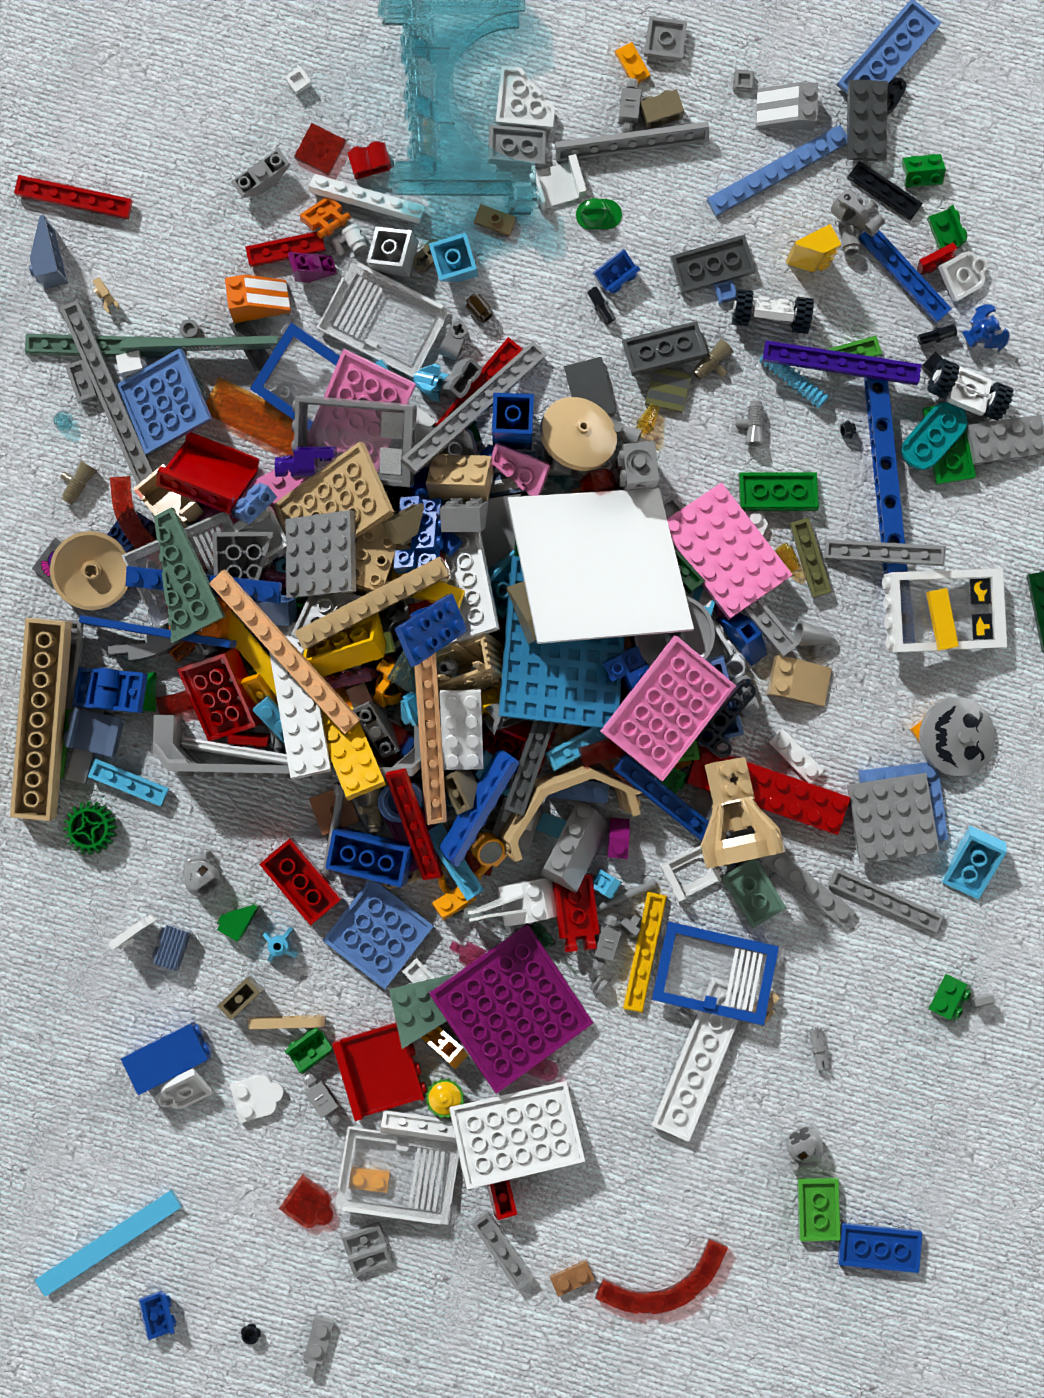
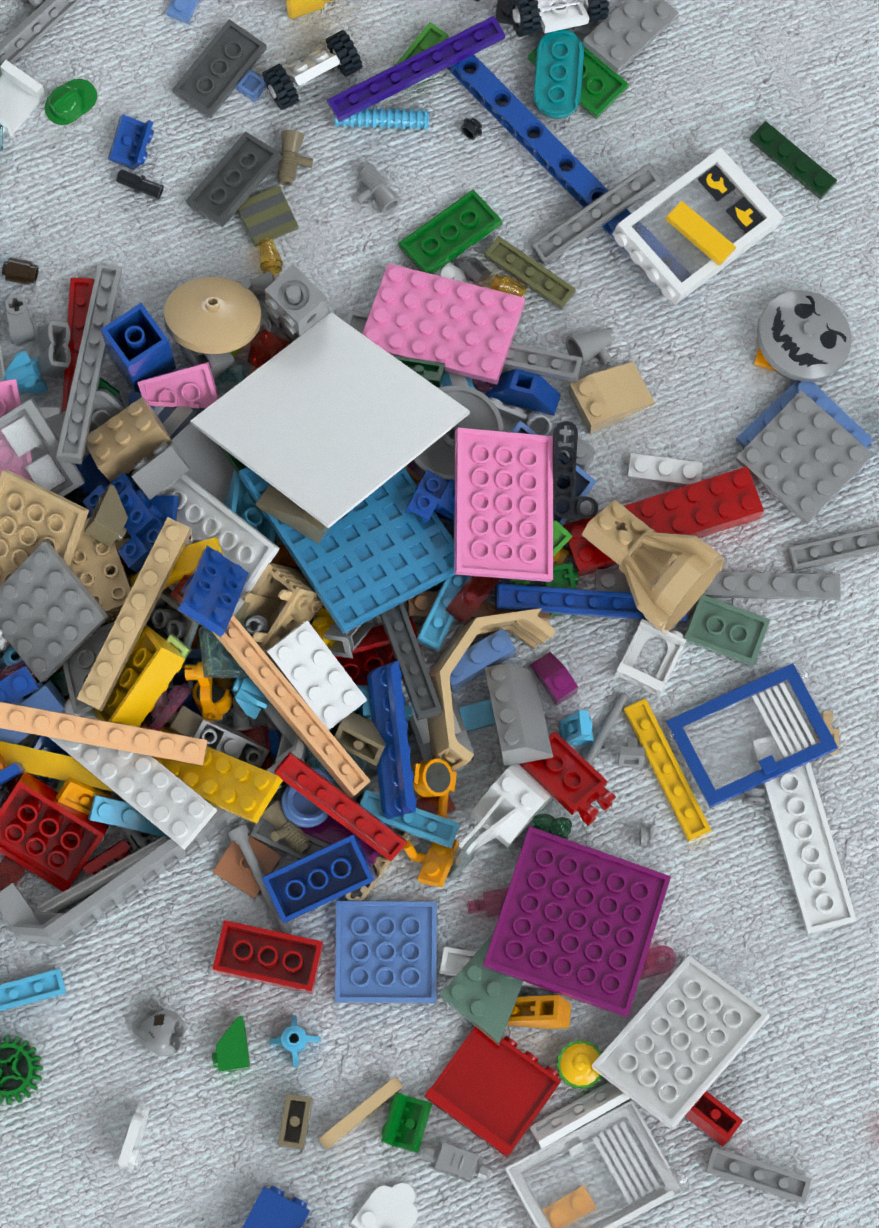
camera: 35 degrees left, 10 degrees down
(171, 947) = (184, 1126): sand blue brick -> none
(572, 1278) = (849, 1149): medium nougat plate -> none
(590, 382) = (185, 261): dark grey tile -> none
(606, 943) = (623, 786): light grey piece -> none
(775, 529) = (475, 270): none -> flat silver plate

